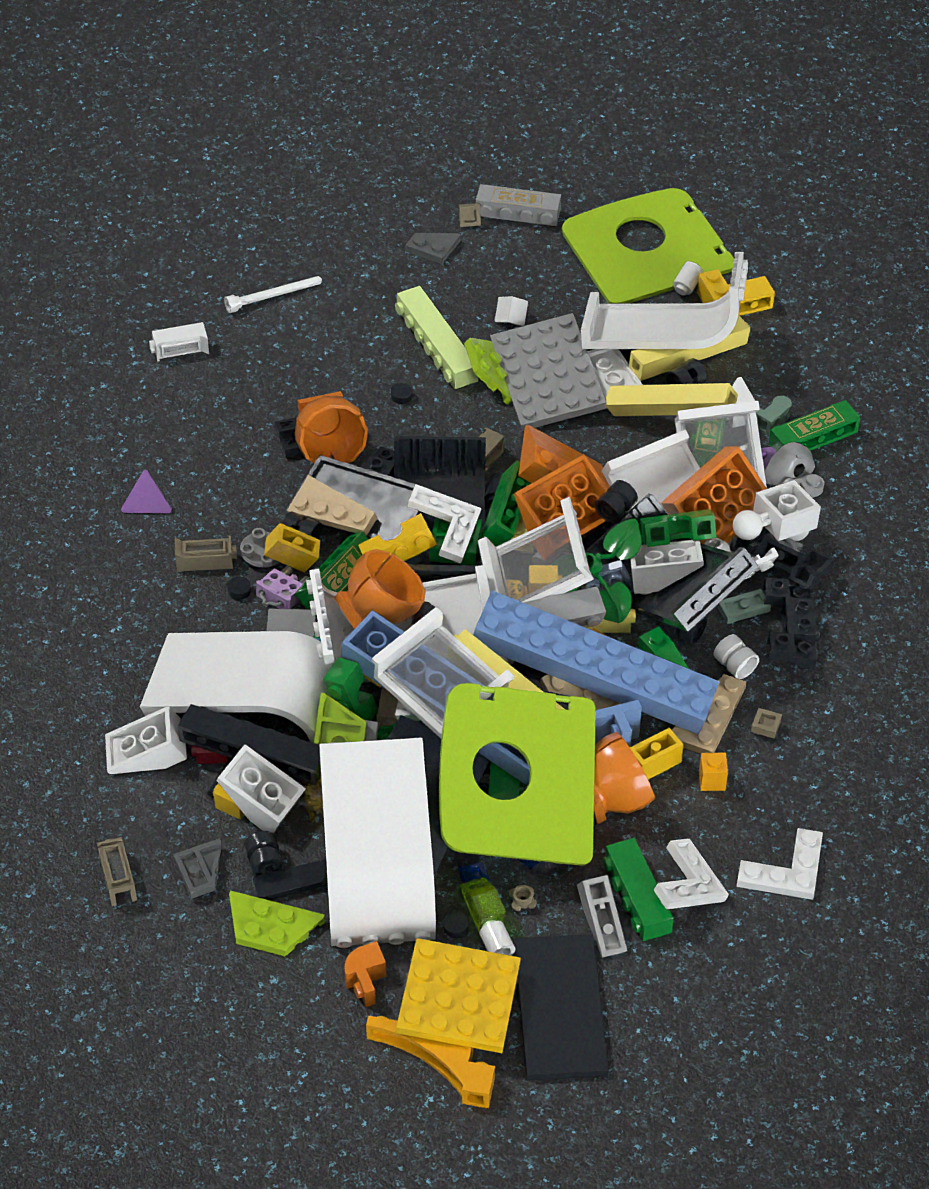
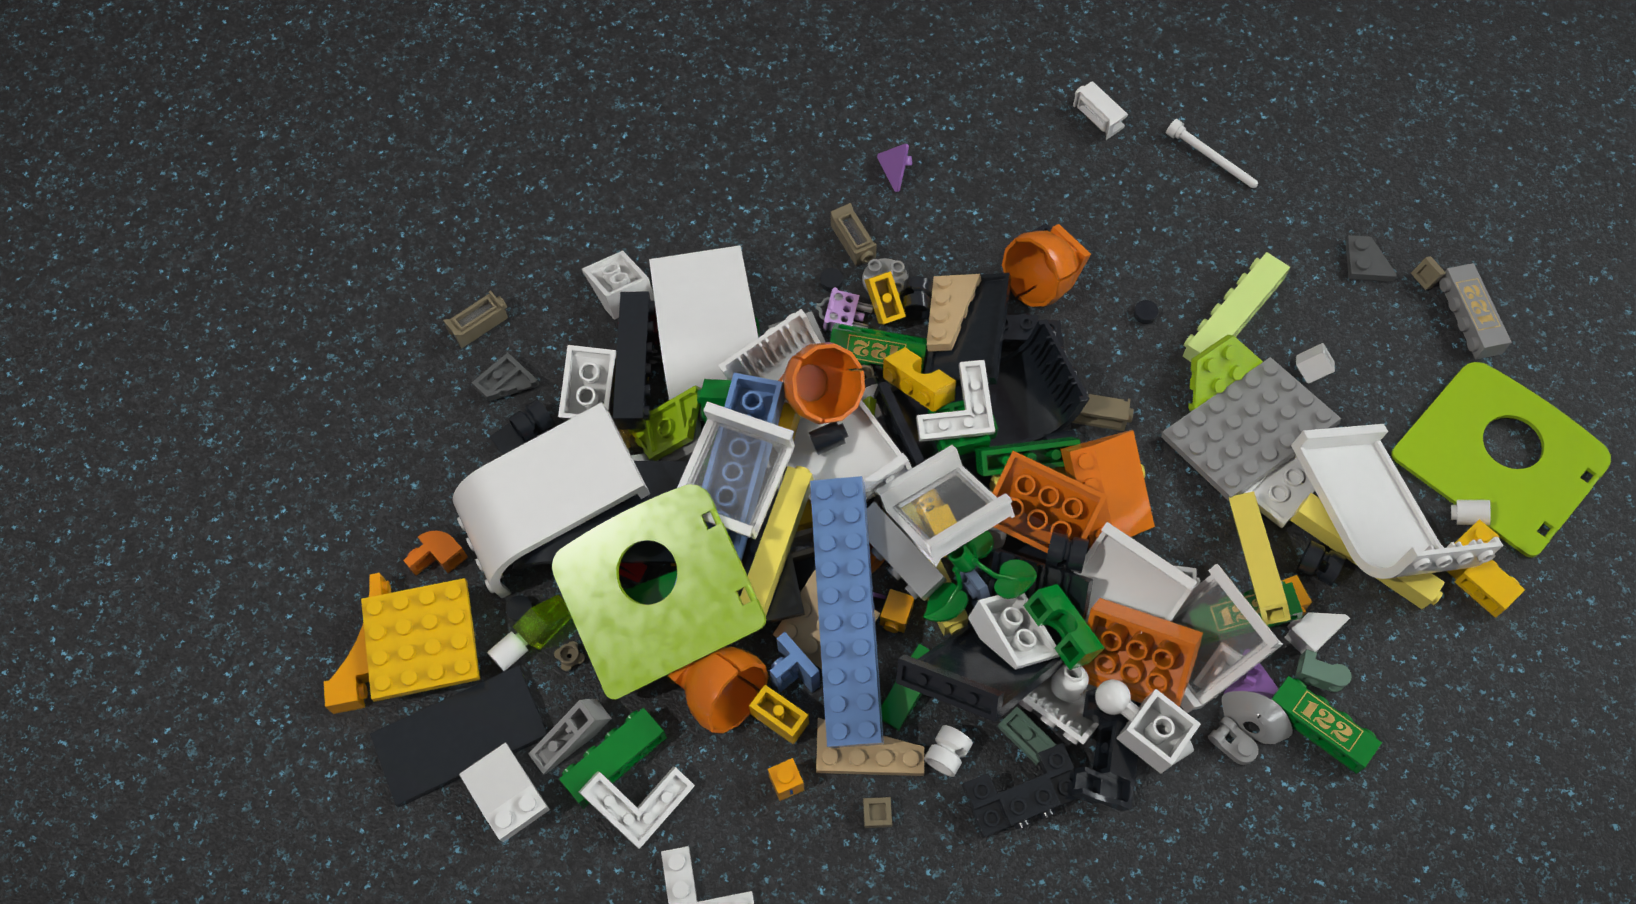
camera: 70 degrees right, 15 degrees up
(270, 924) = (465, 450): lime wing -> none
(637, 976) = (504, 792): none -> white slope

